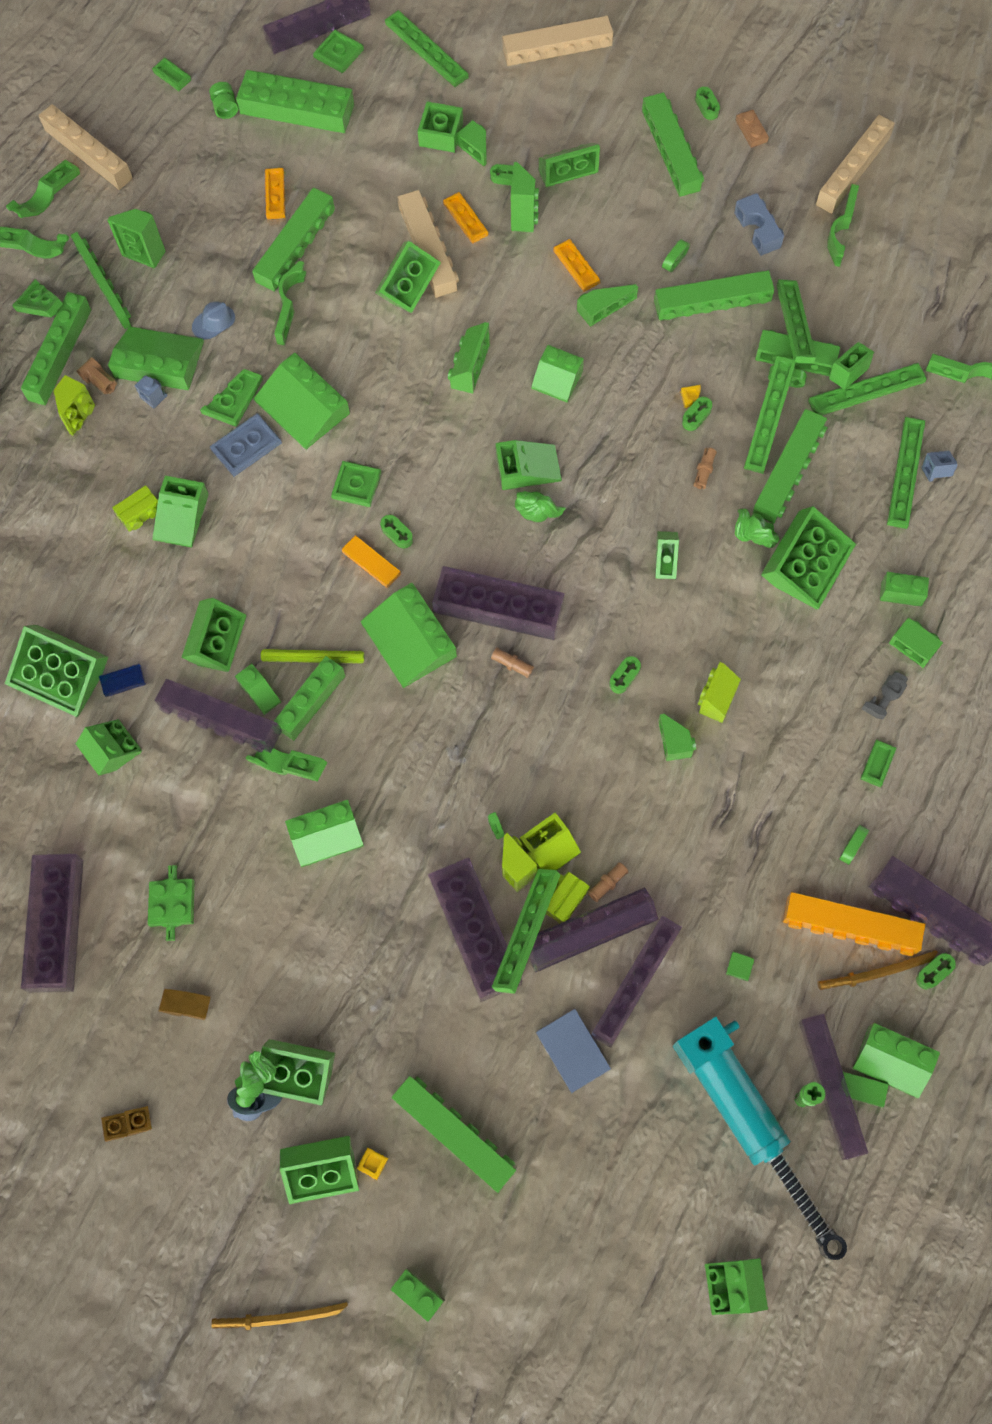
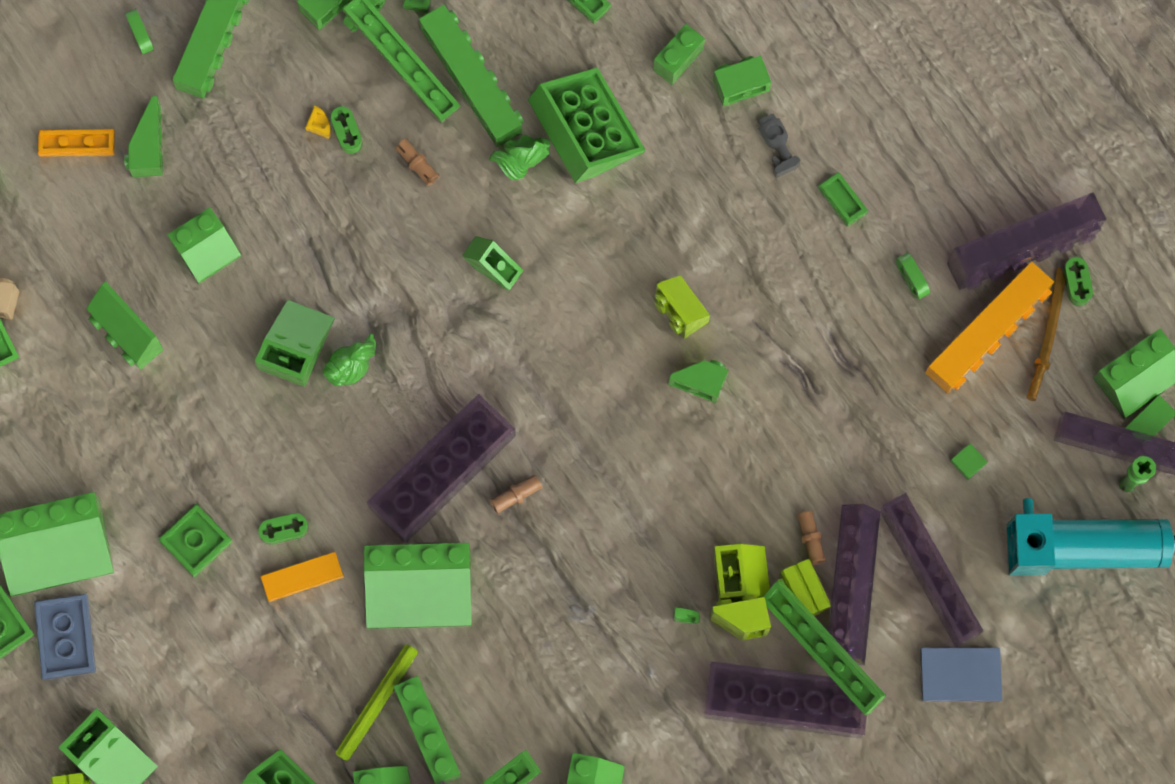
camera: 65 degrees left, 5 degrees up
(628, 677) = (605, 385): bright green beam -> none

